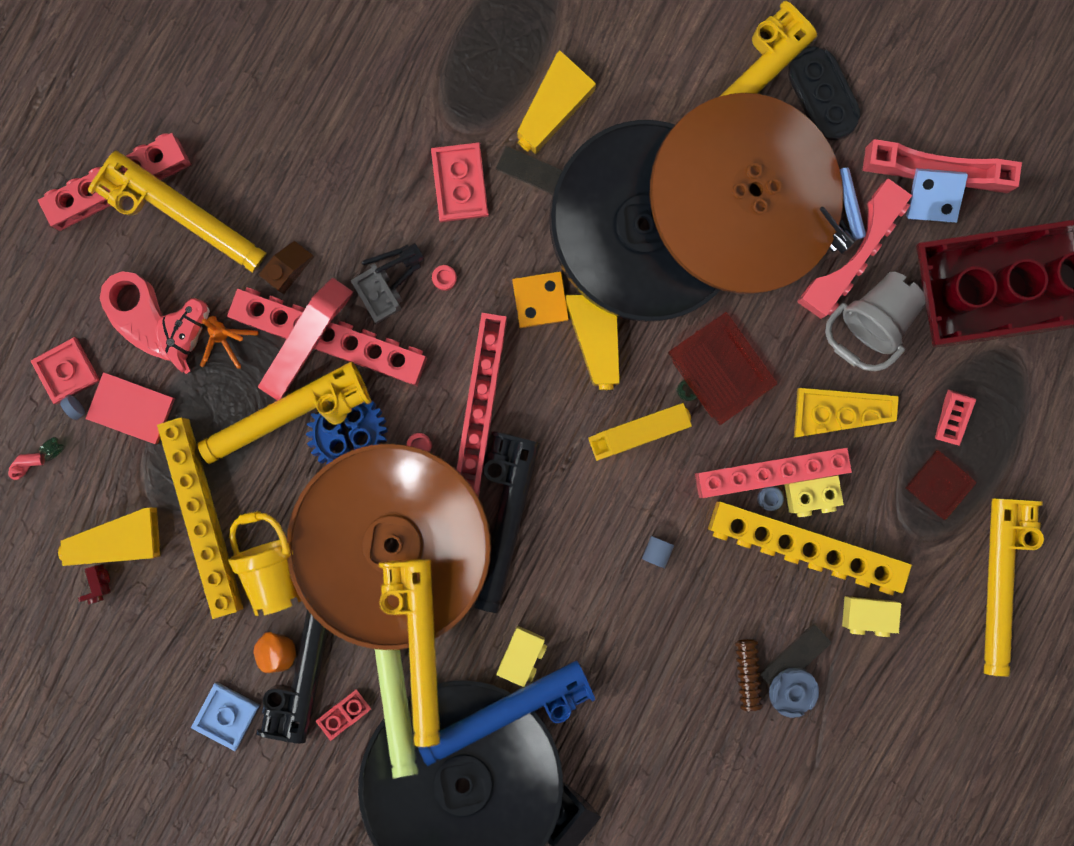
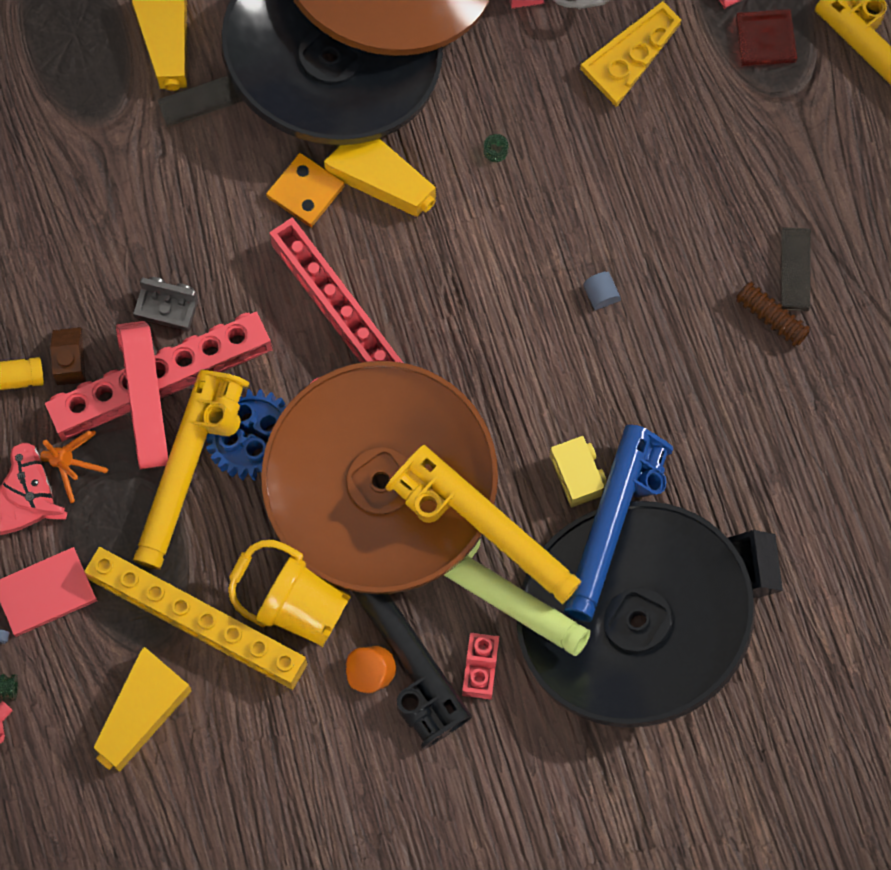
camera: 40 degrees left, 15 degrees down
(98, 582) = (159, 755): dark red bracket -> none
(225, 716) = (382, 765): light blue tile -> none
(407, 254) = (162, 254): black plant -> none
(444, 277) = (209, 245): coral tile -> none
(459, 182) = (146, 162): coral tile -> none
(516, 479) = (430, 342): black piece -> none
(640, 431) = (489, 212): yellow slope -> none
(722, 368) = (505, 106): clear red piece -> none
(770, 498) = (646, 168): sand blue tile -> none
(773, 473) = (627, 145): coral brick -> none
(793, 692) = (821, 293): sand blue tile -> none
(814, 495) = (676, 132): light yellow brick -> none
(871, 615) = (817, 177): light yellow brick -> none
(895, 571) = (797, 128): yellow brick -> none

